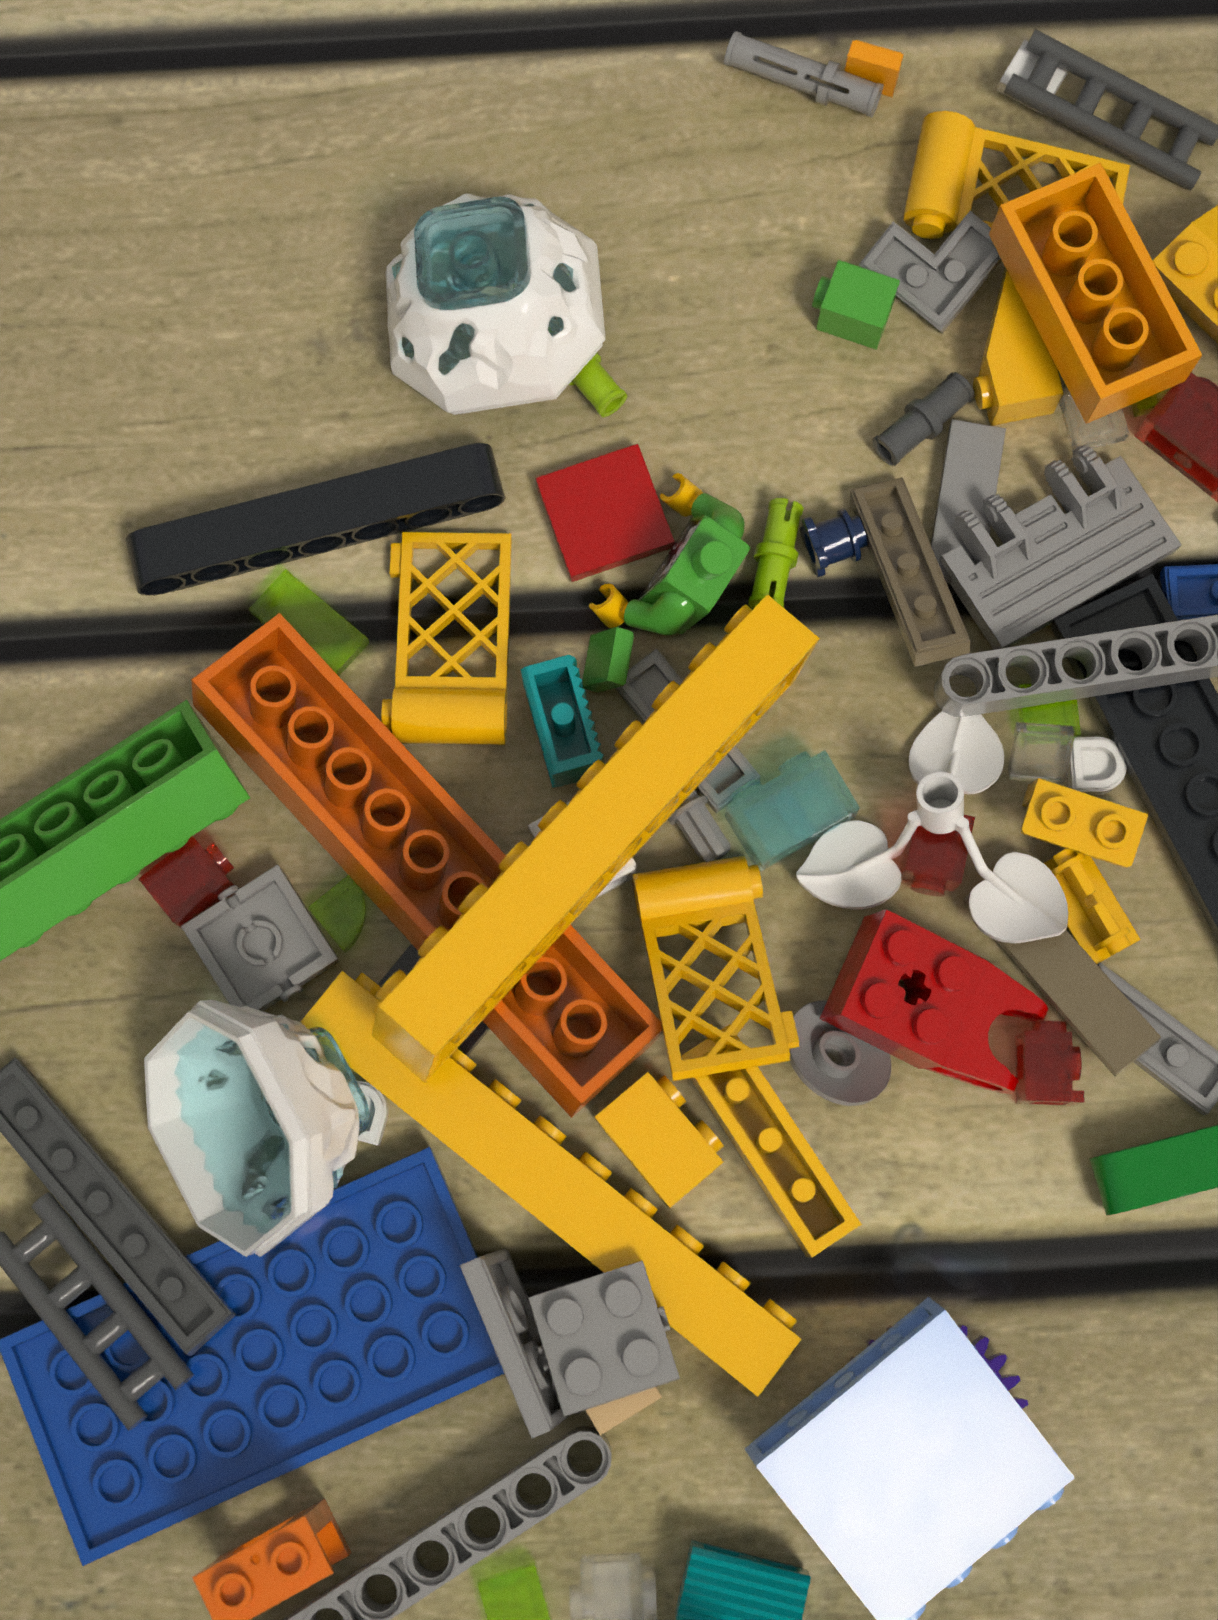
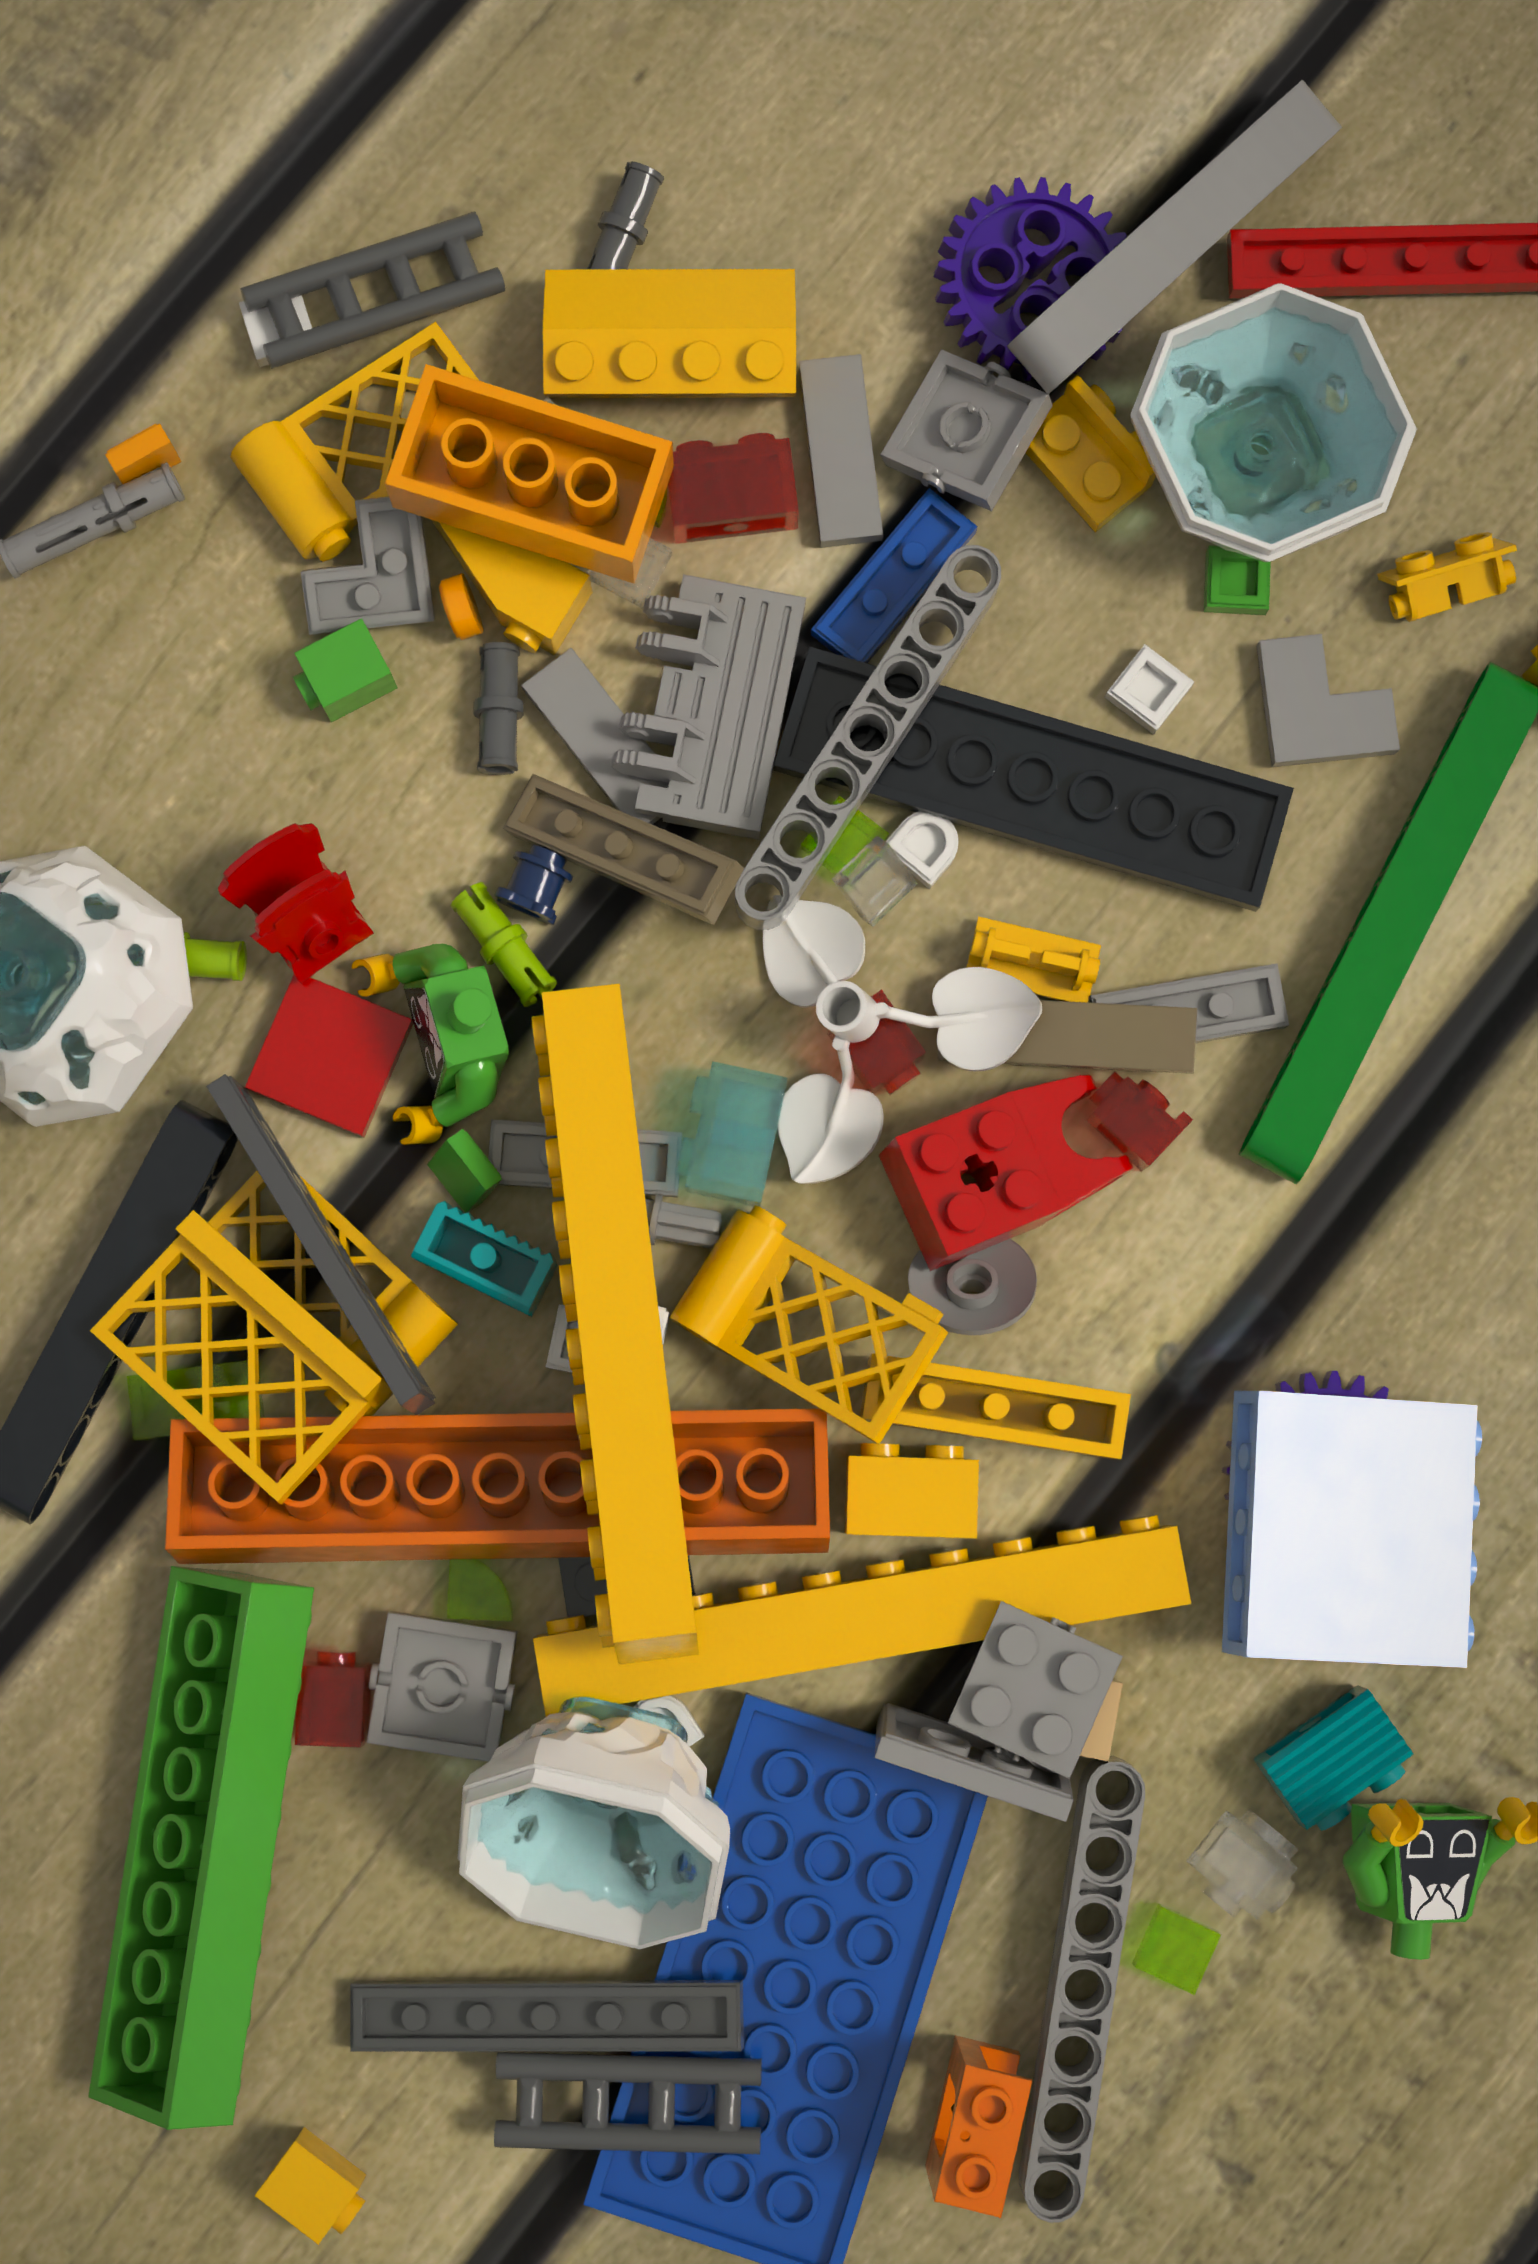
camera: 55 degrees left, 5 degrees up
(407, 621) = (280, 1316): none -> yellow fence
(476, 611) = (322, 1245): none -> dark grey tile
(682, 398) = (296, 900): none -> red piece
(965, 338) = (460, 607): none -> light orange tile
(1082, 822) = (966, 906): yellow bracket -> none

